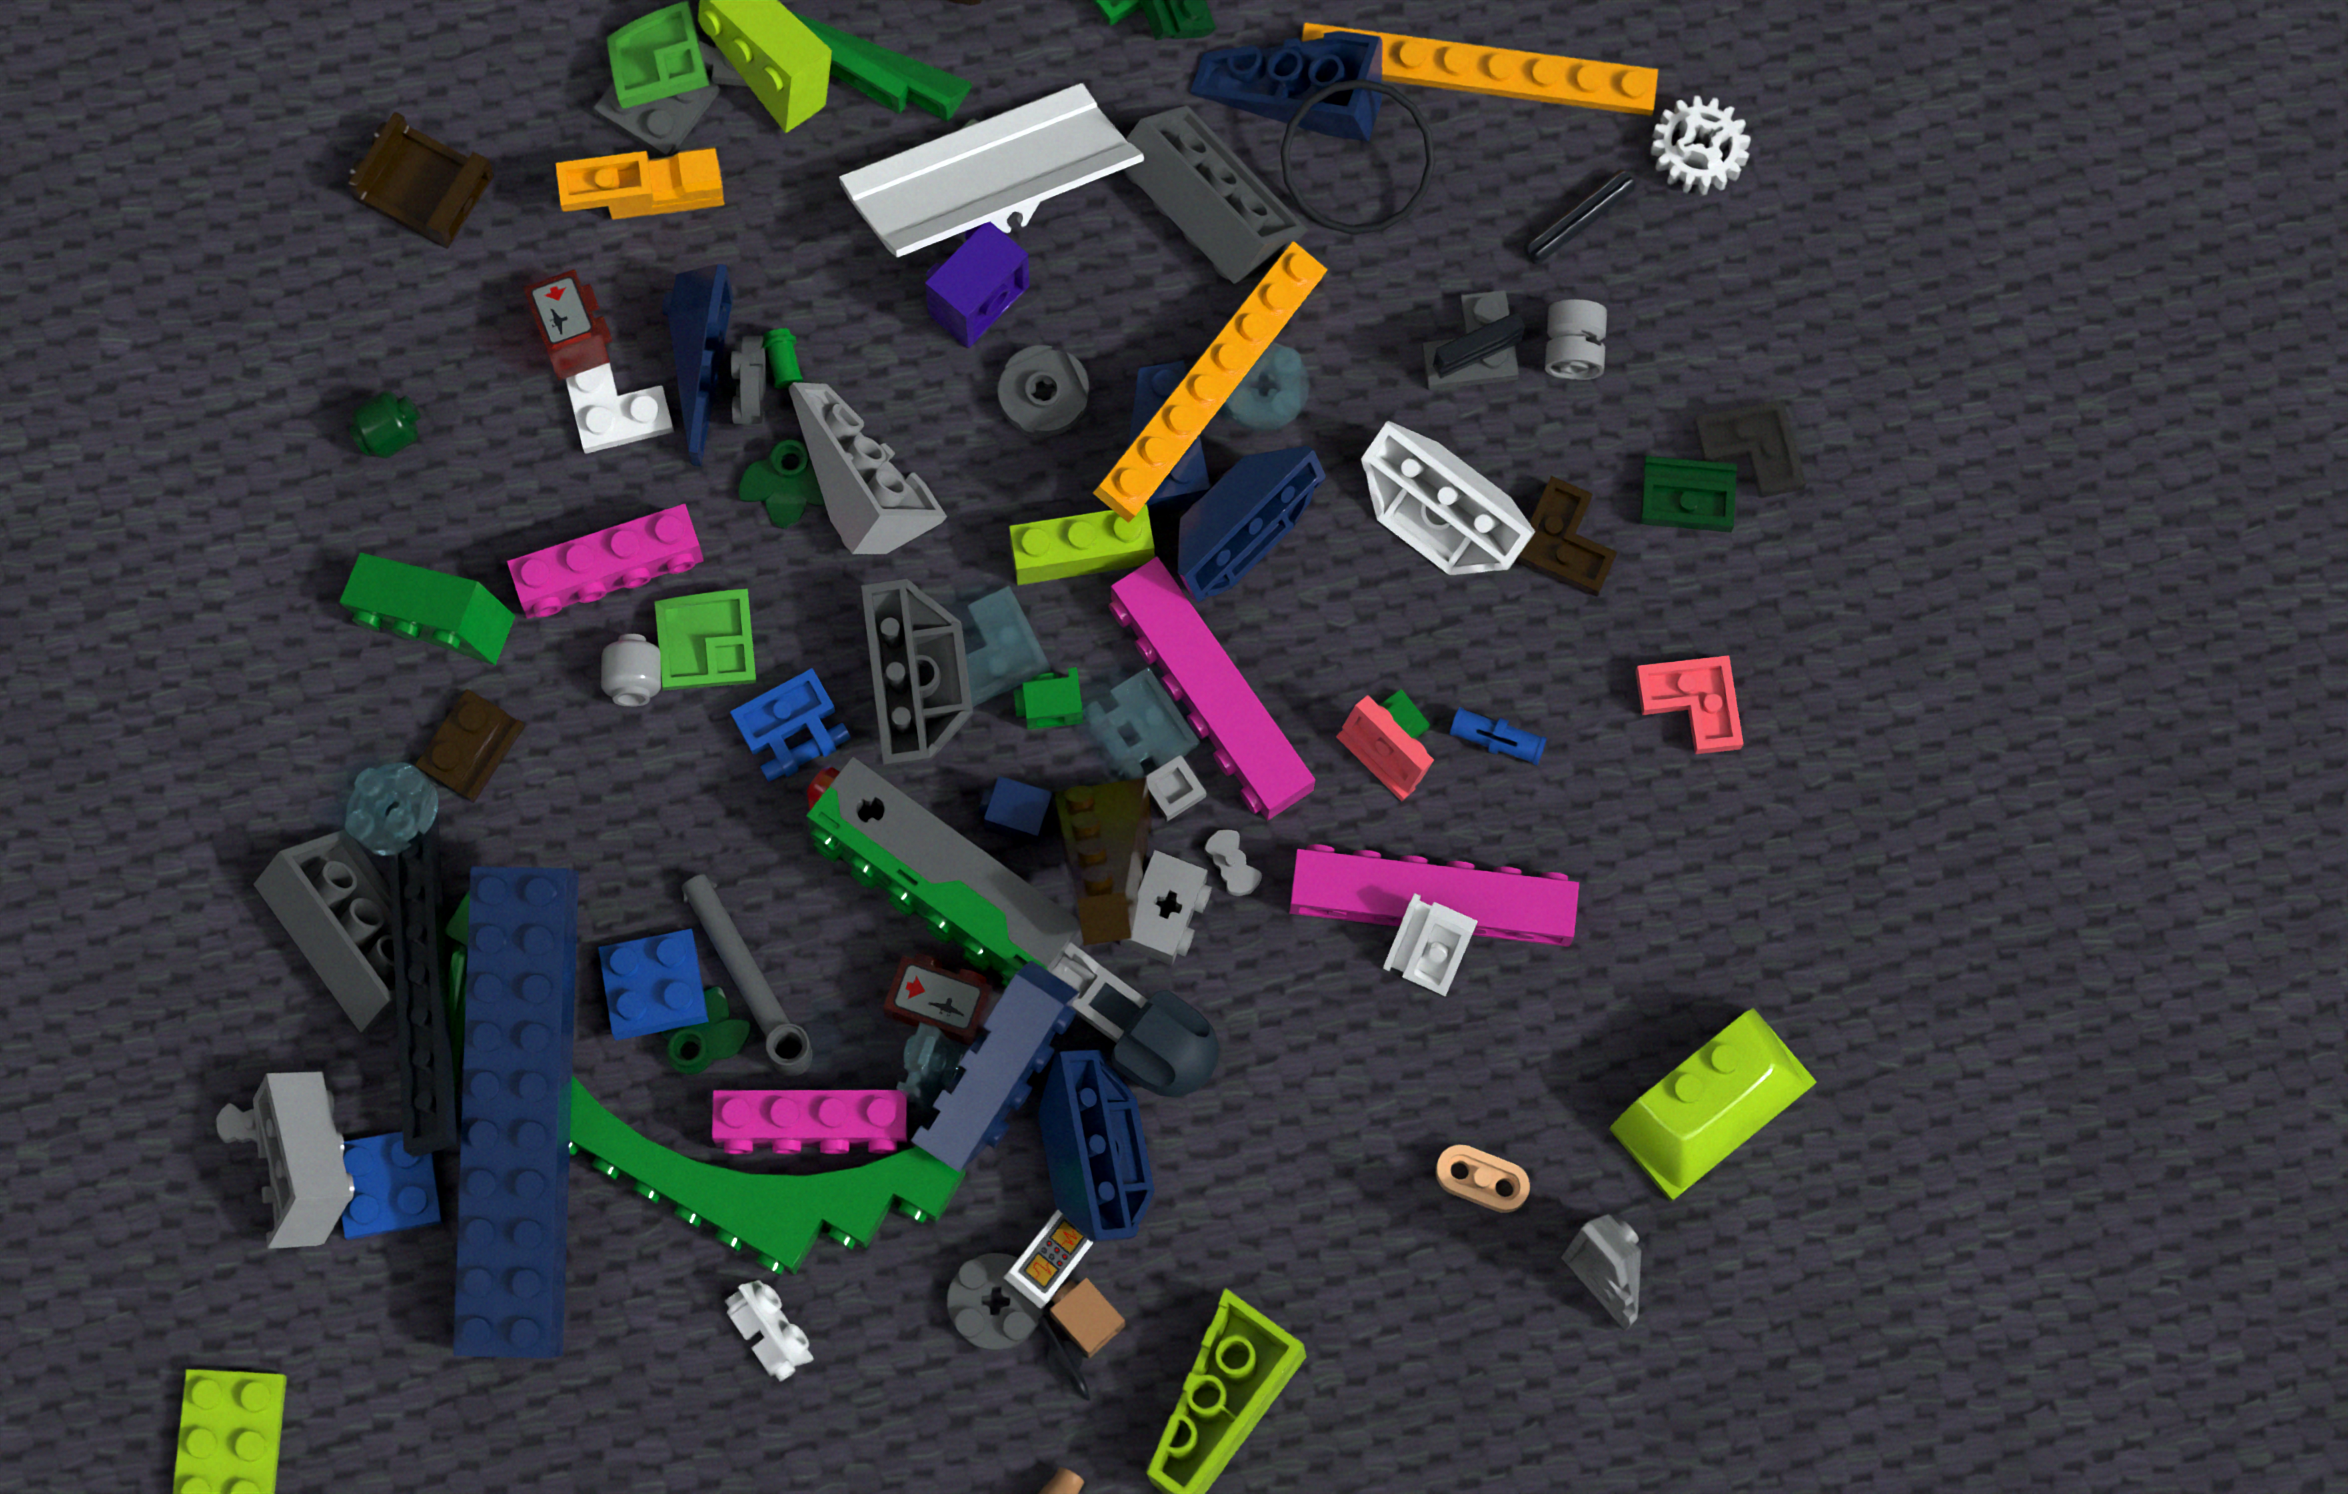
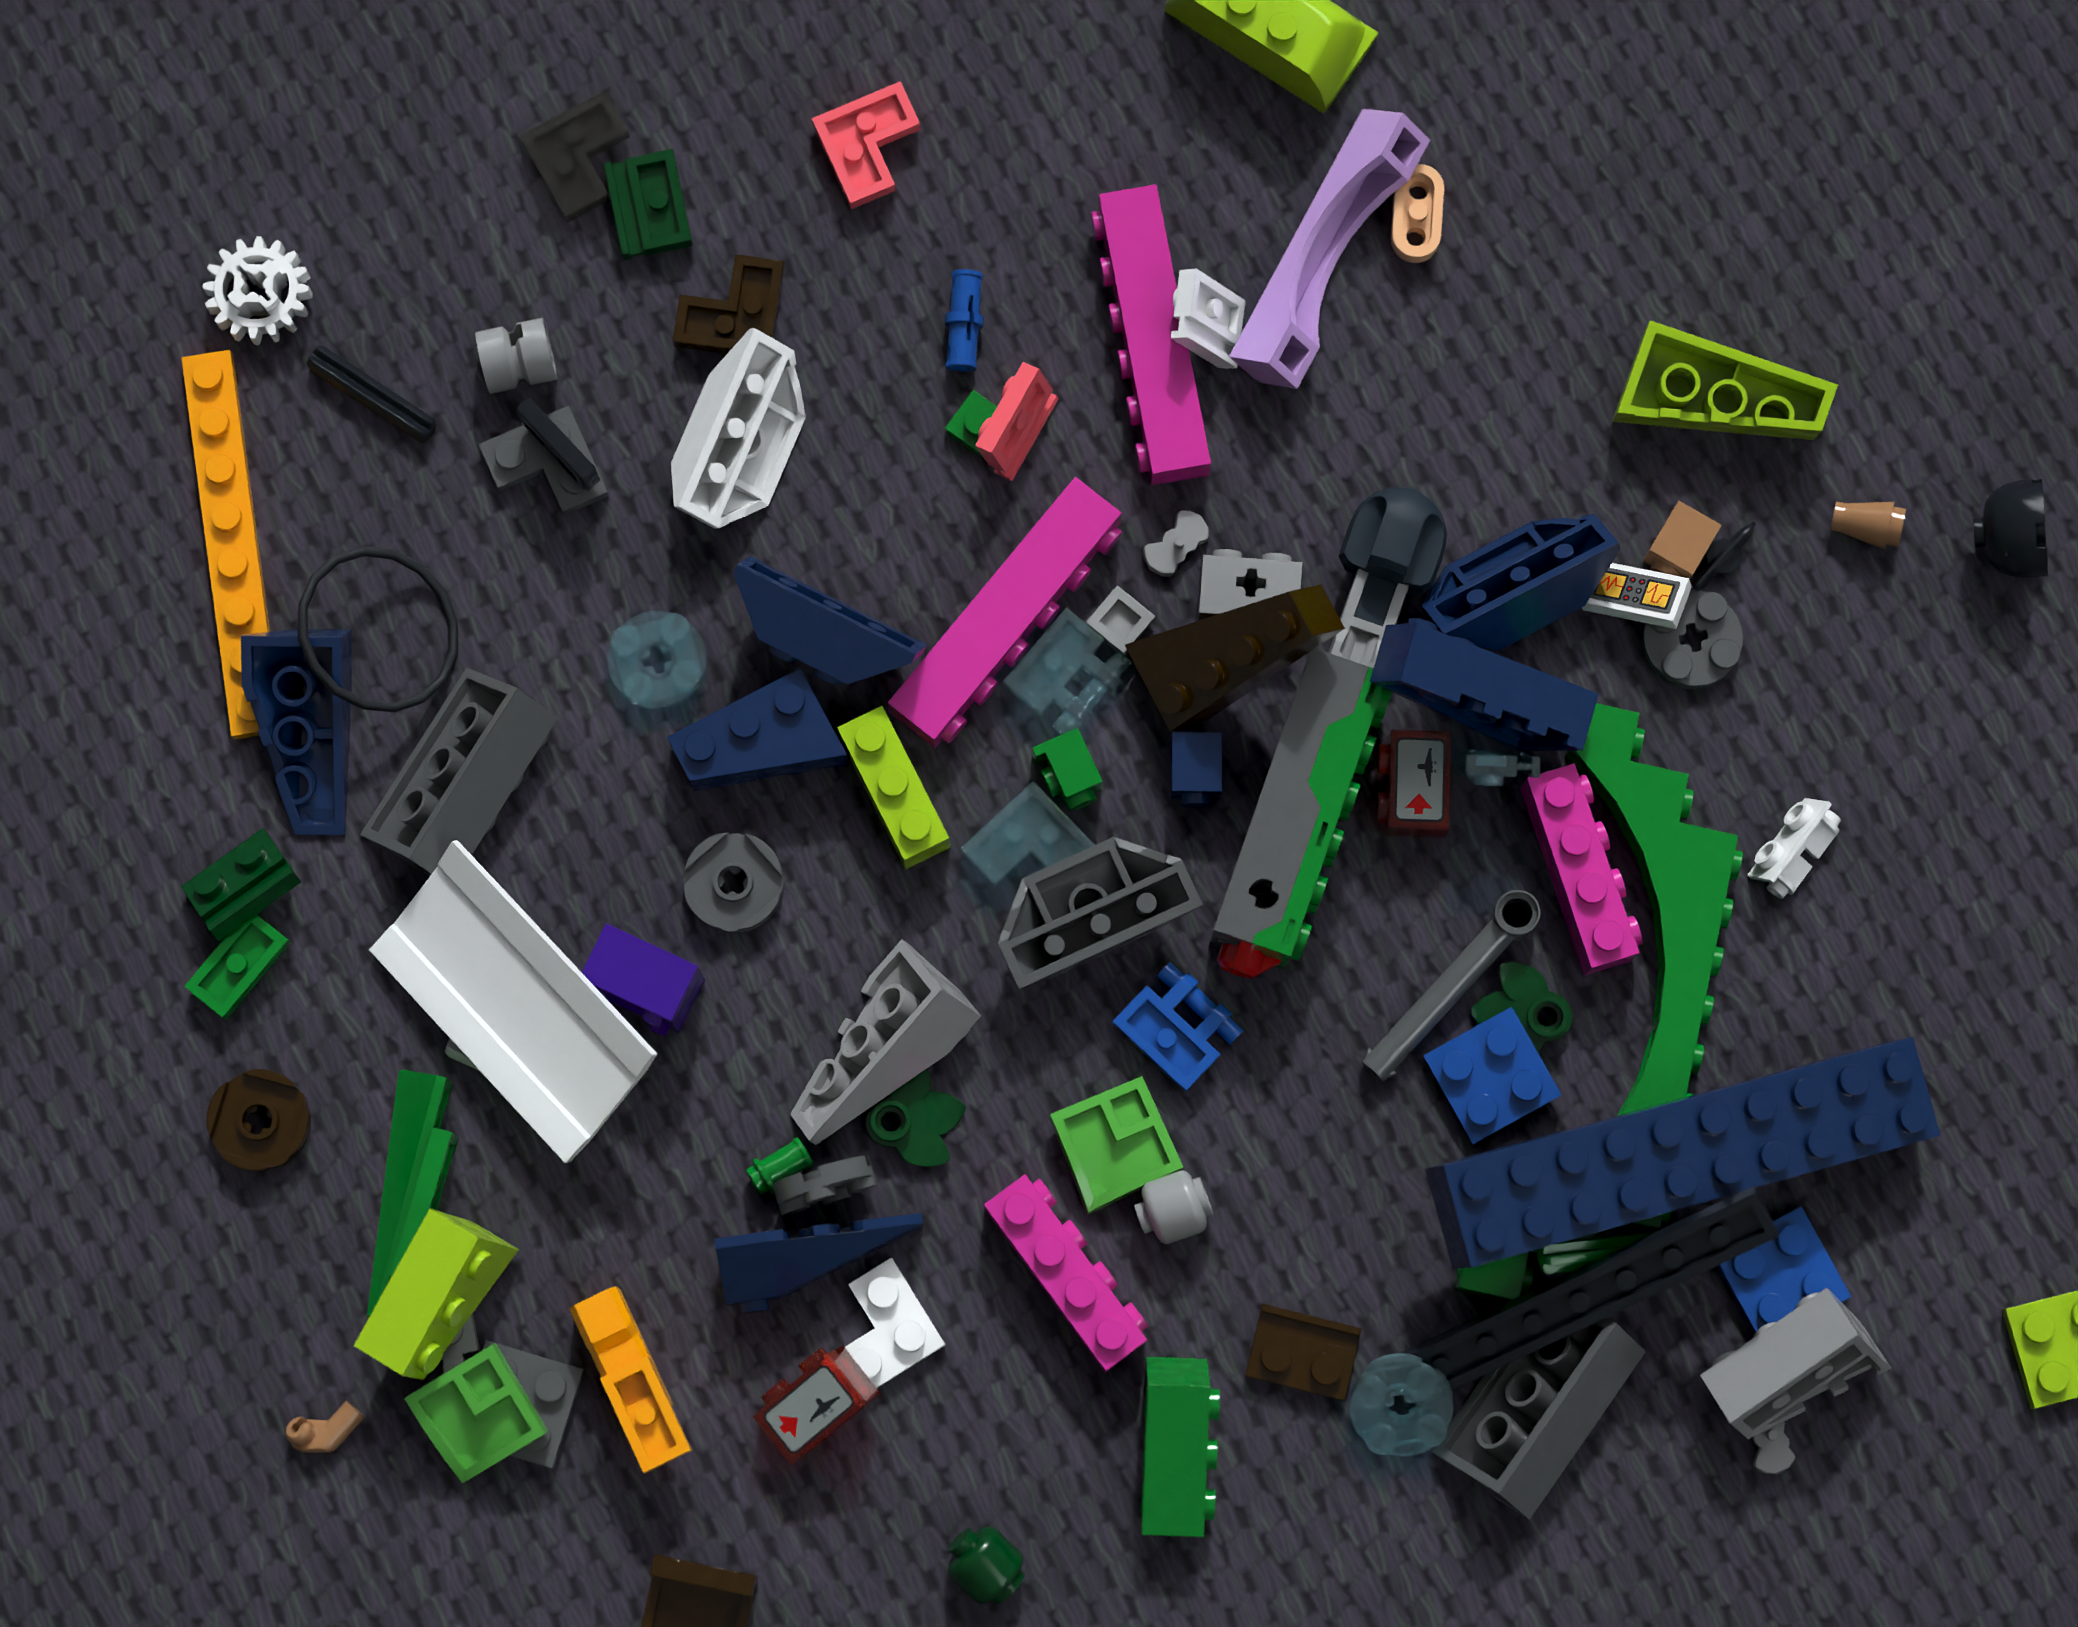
camera: 105 degrees left, 5 degrees up
(1209, 382) = (684, 700): light orange plate -> none
(1406, 1016) = (1368, 169): none -> lavender arch
(1608, 1265) = (1467, 66): light grey wedge -> none

